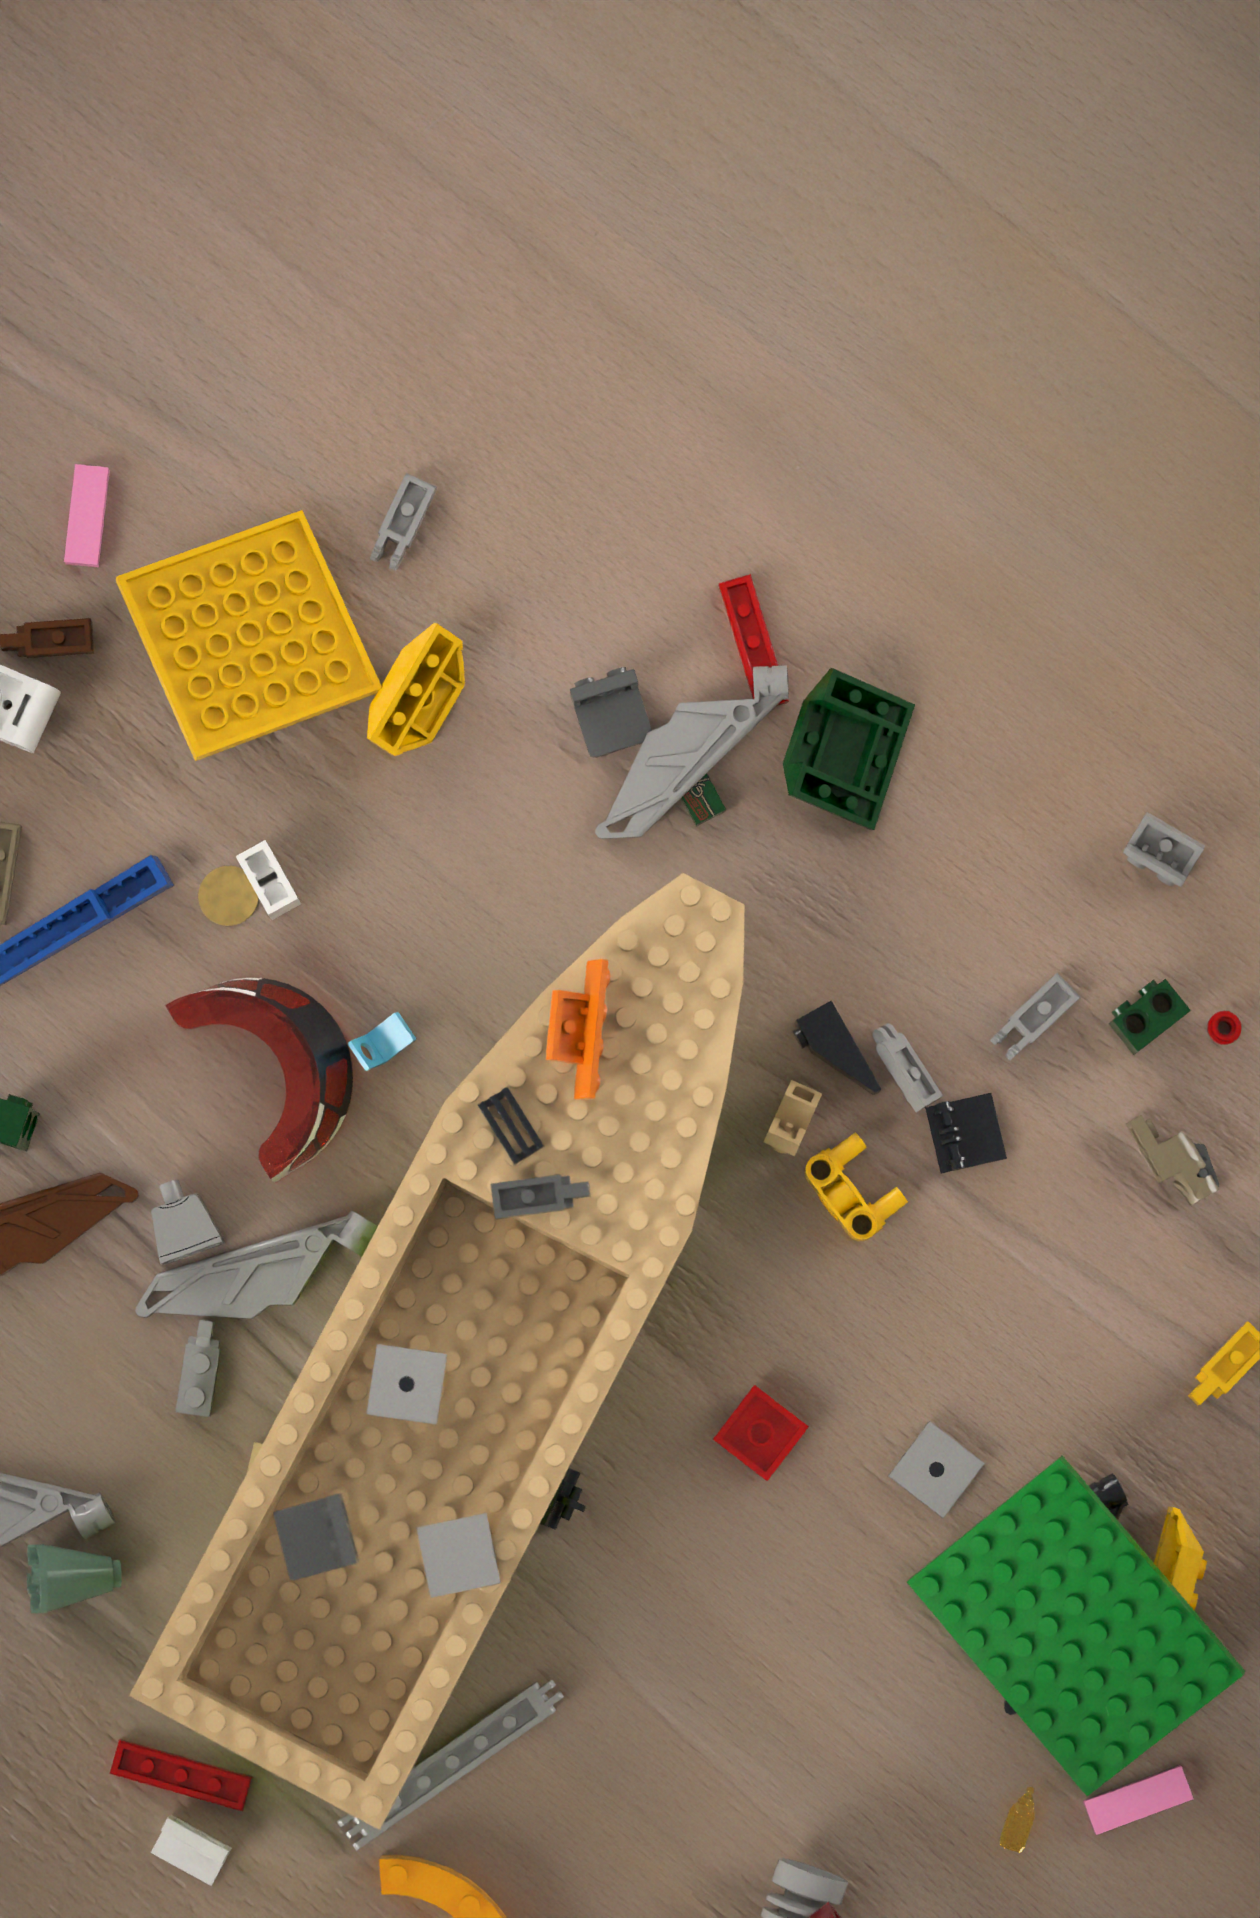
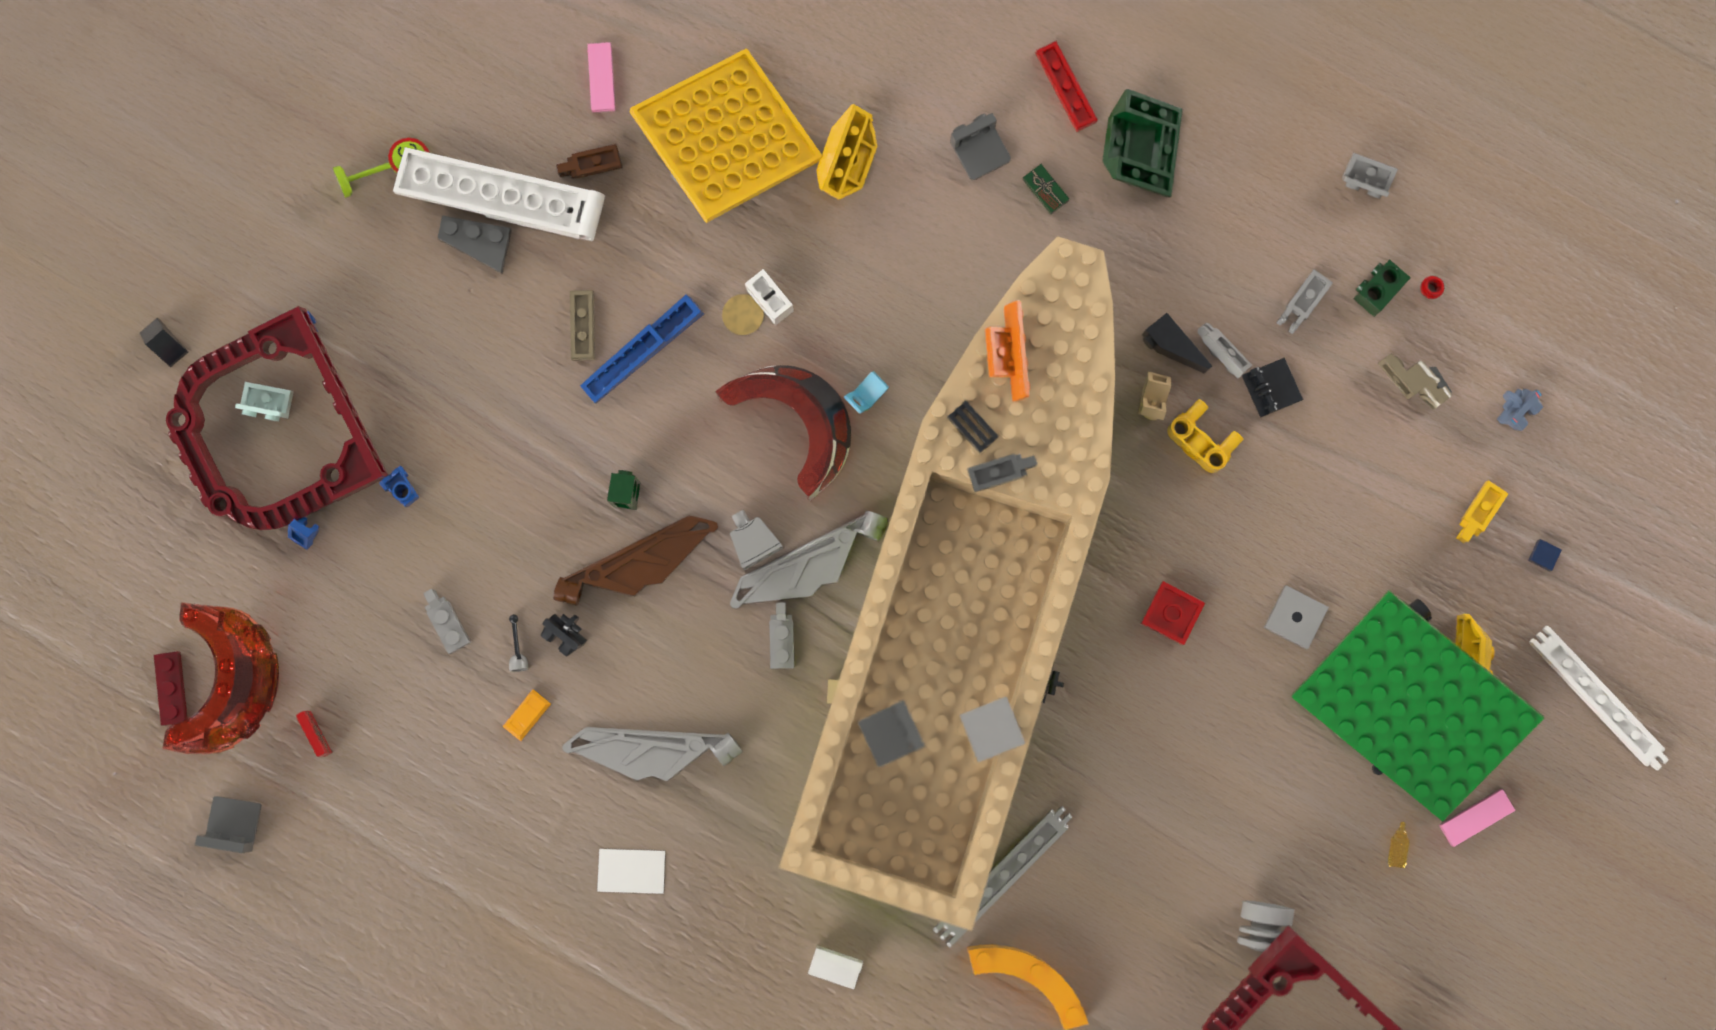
camera: 10 degrees left, 0 degrees up
(68, 1576) = (717, 793): sand green cone -> none
(181, 1775) = (819, 916): red tile -> none
(404, 518) = (816, 42): light grey hinge -> none
(406, 1384) = (934, 617): light grey tile -> none
(686, 749) = (1036, 162): light grey wing -> none

